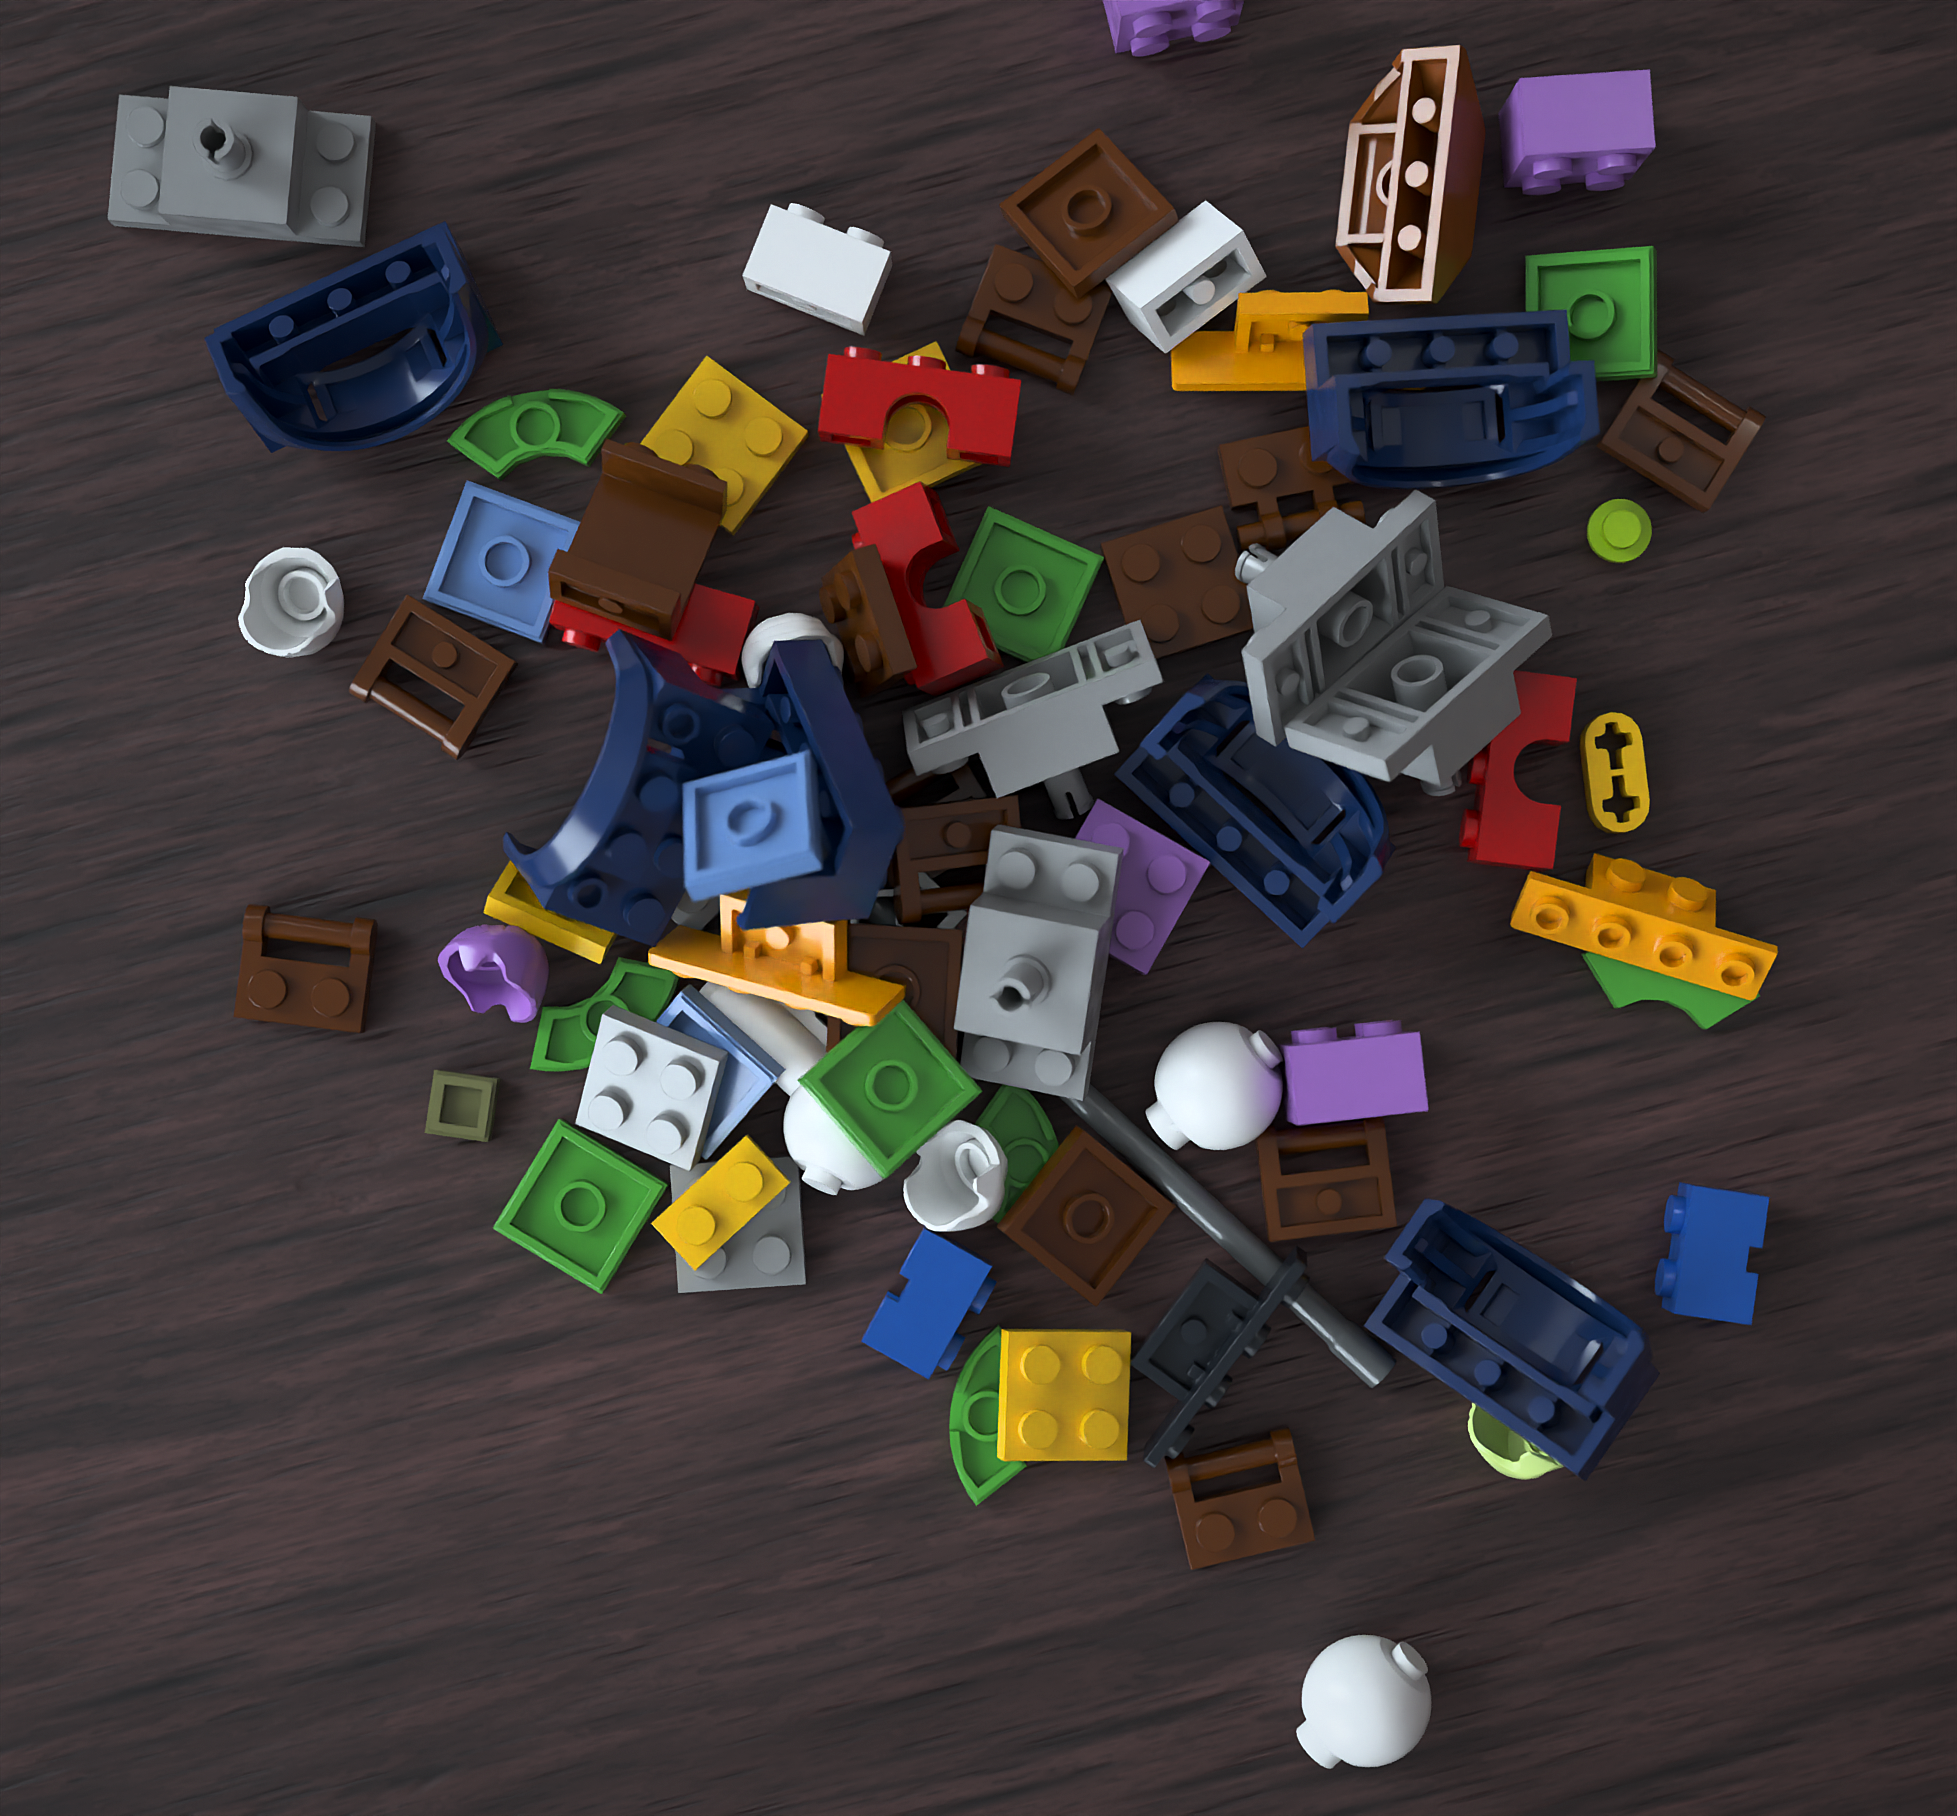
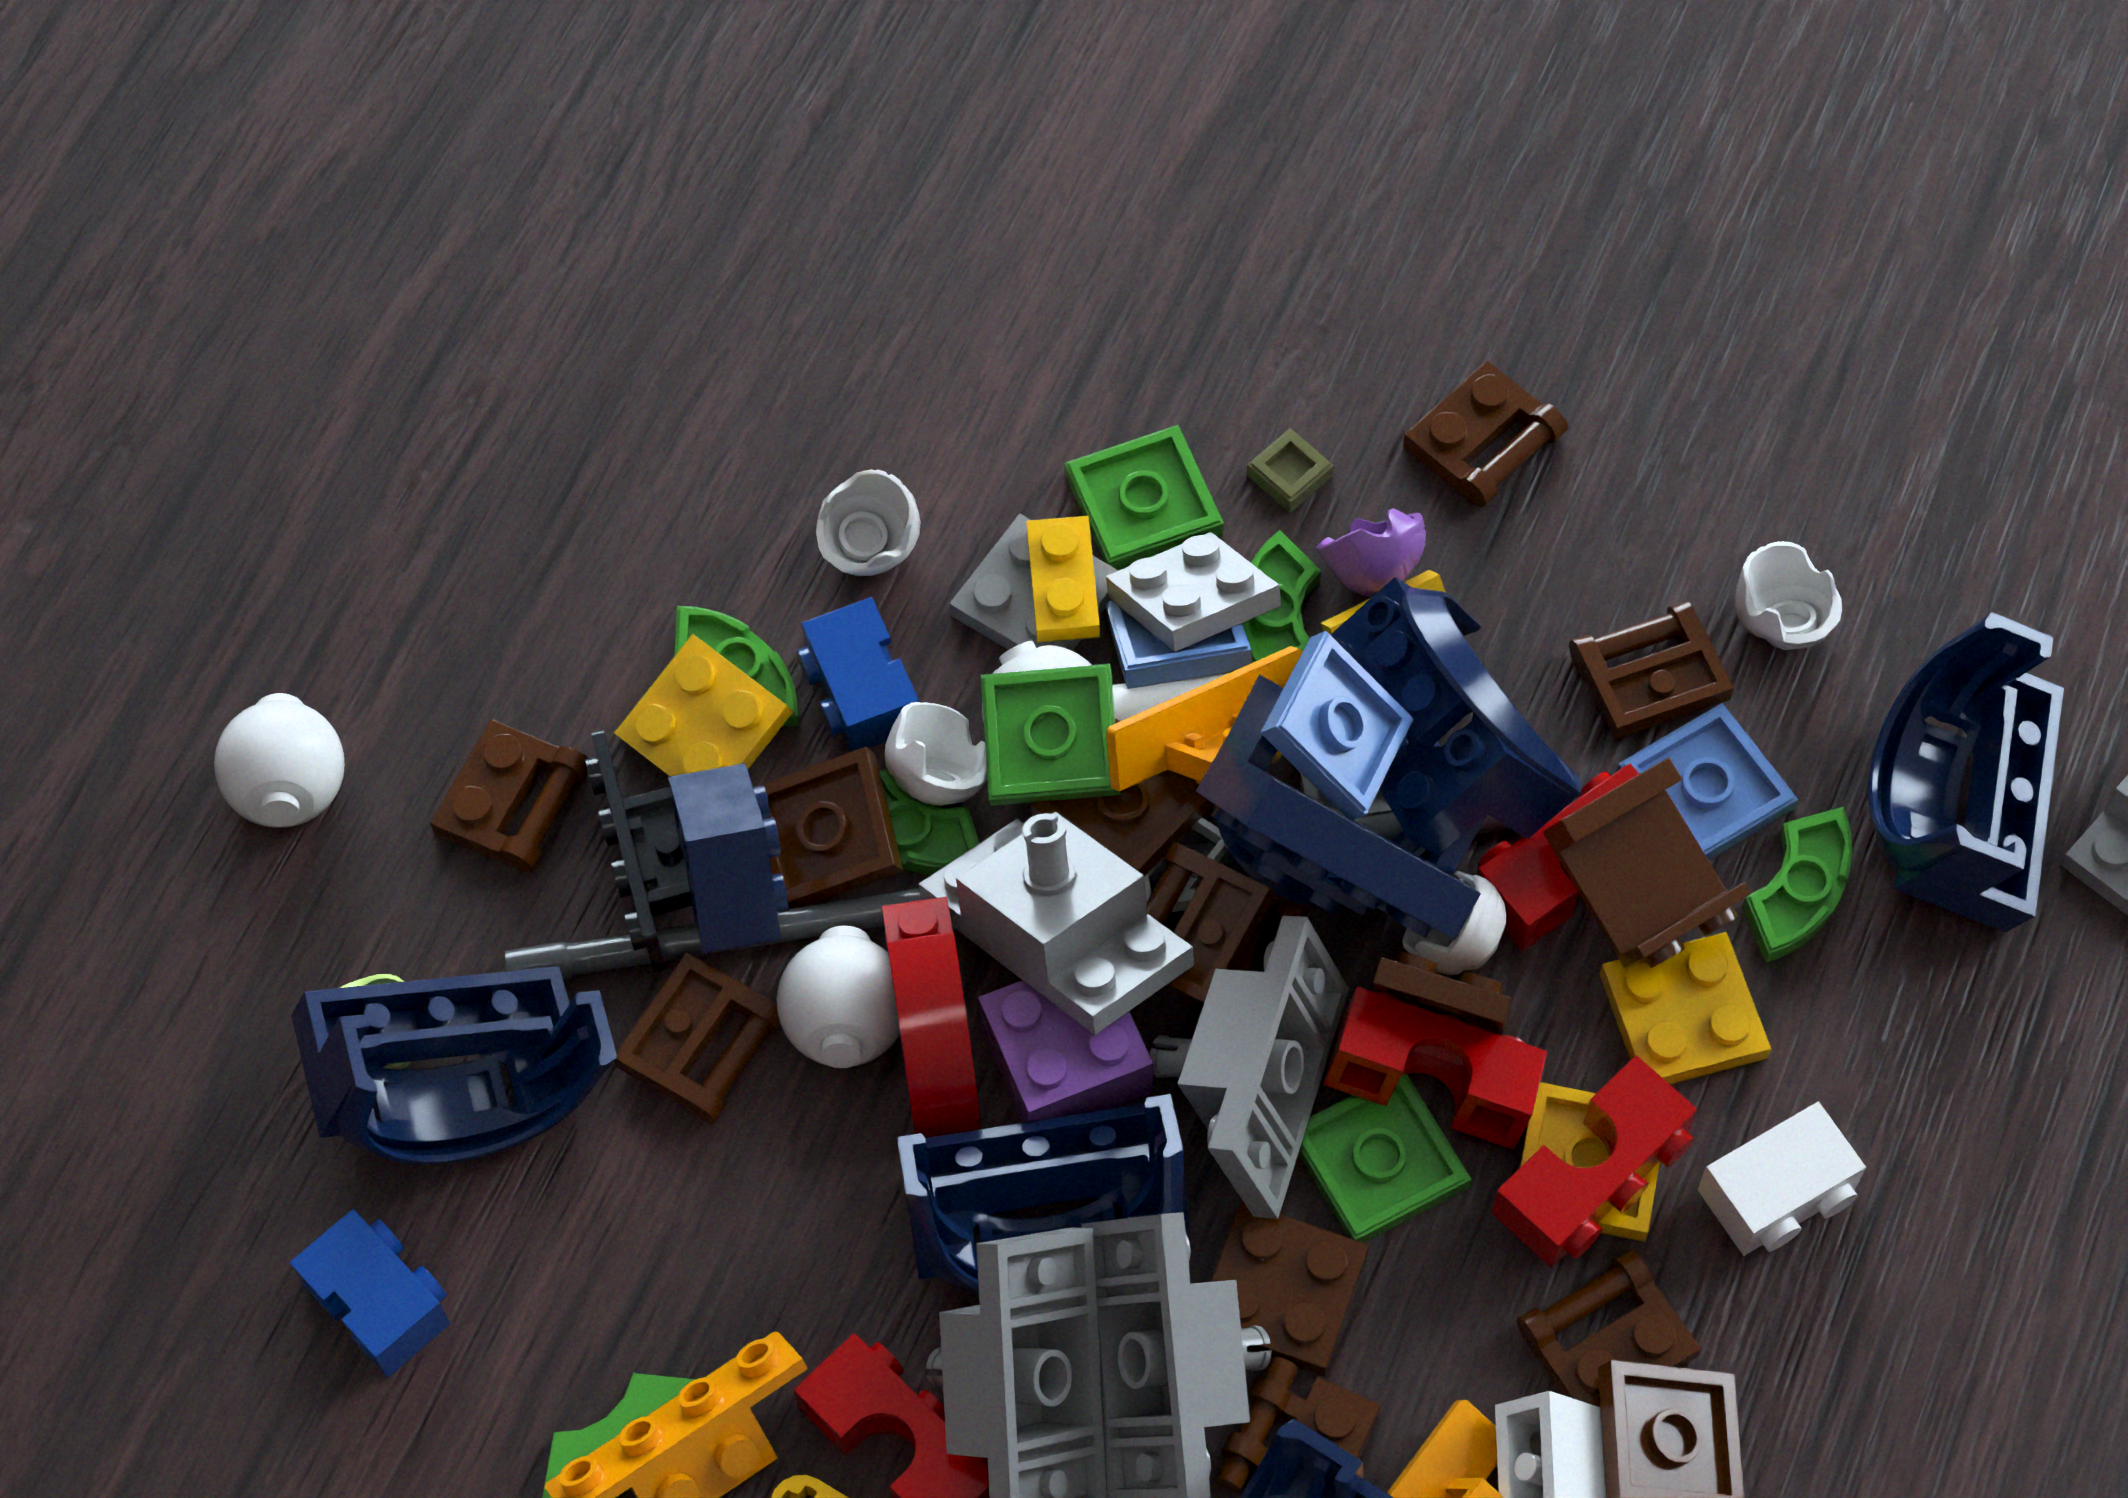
camera: 130 degrees right, 25 degrees down
(791, 1403) = (868, 524): none -> white hair
(1184, 1004) = (932, 1017): none -> red arch
(1186, 1263) = (727, 857): none -> dark blue brick
(1352, 1075) = (763, 1099): medium lavender brick -> none

